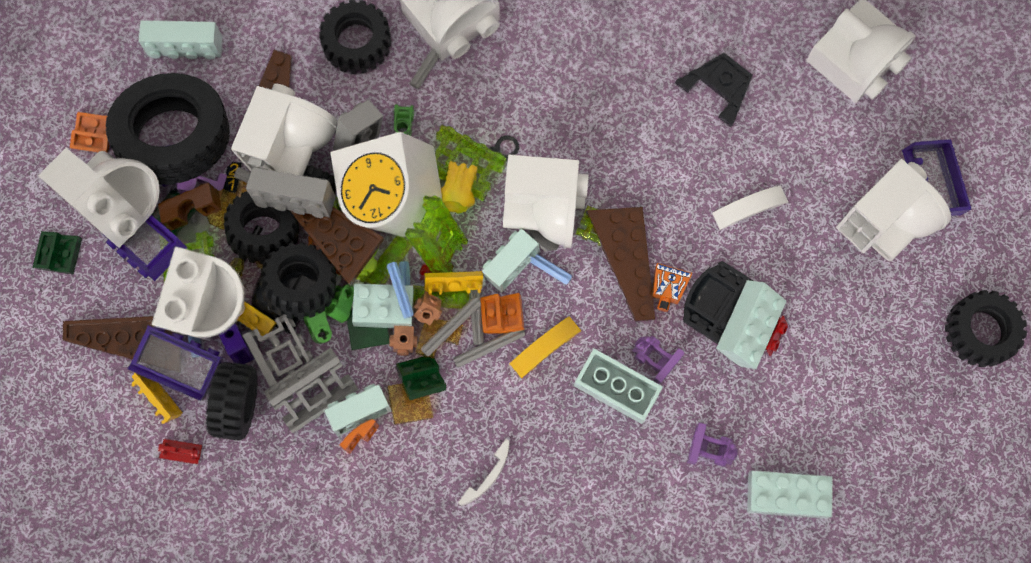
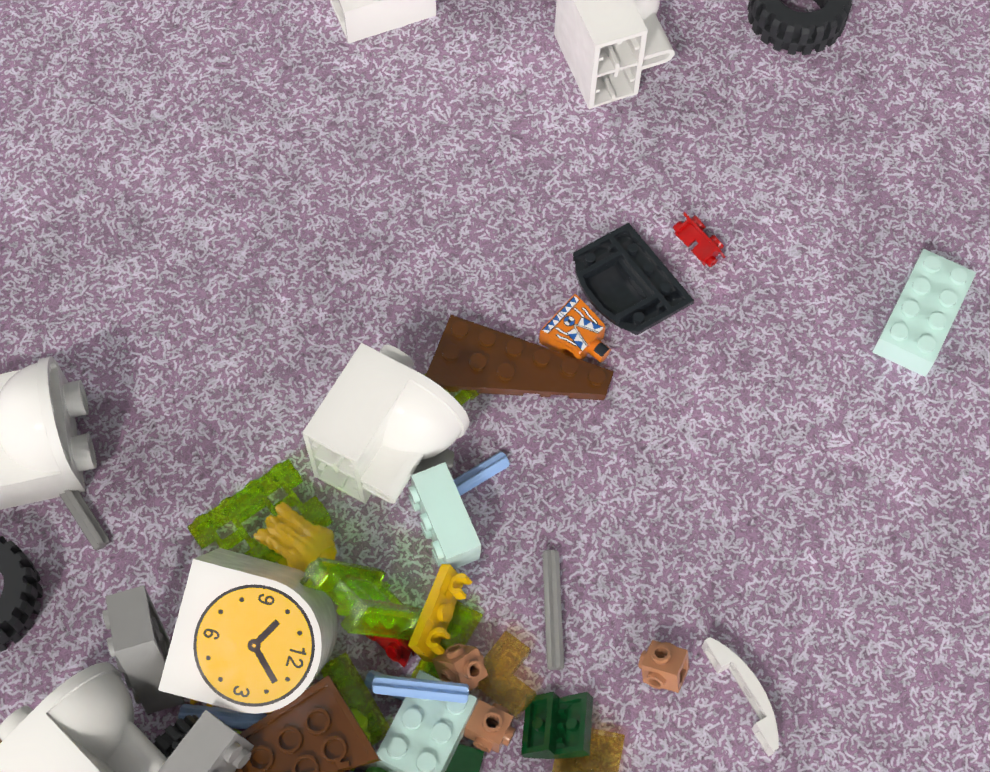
camera: 65 degrees left, 10 degrees down
(403, 118) = (145, 574): bright green piece -> none
(451, 326) = (502, 647): light grey axle -> none
(476, 318) = (503, 609): light grey axle -> none
(481, 422) = (664, 666): none -> nougat brick
(496, 148) = (282, 456): black piece -> none
(502, 313) = (513, 568): orange slope -> none
(544, 346) = (589, 533): yellow slope -> none
(618, 386) = (690, 457): light aqua brick -> none
(644, 347) = (682, 384): medium lavender tile -> none
(723, 77) = (323, 141): black wing -> none
(726, 453) = (835, 363): medium lavender tile -> none
(749, 206) = (513, 193): white slope -> none
(751, 324) = (680, 253): light aqua brick -> none

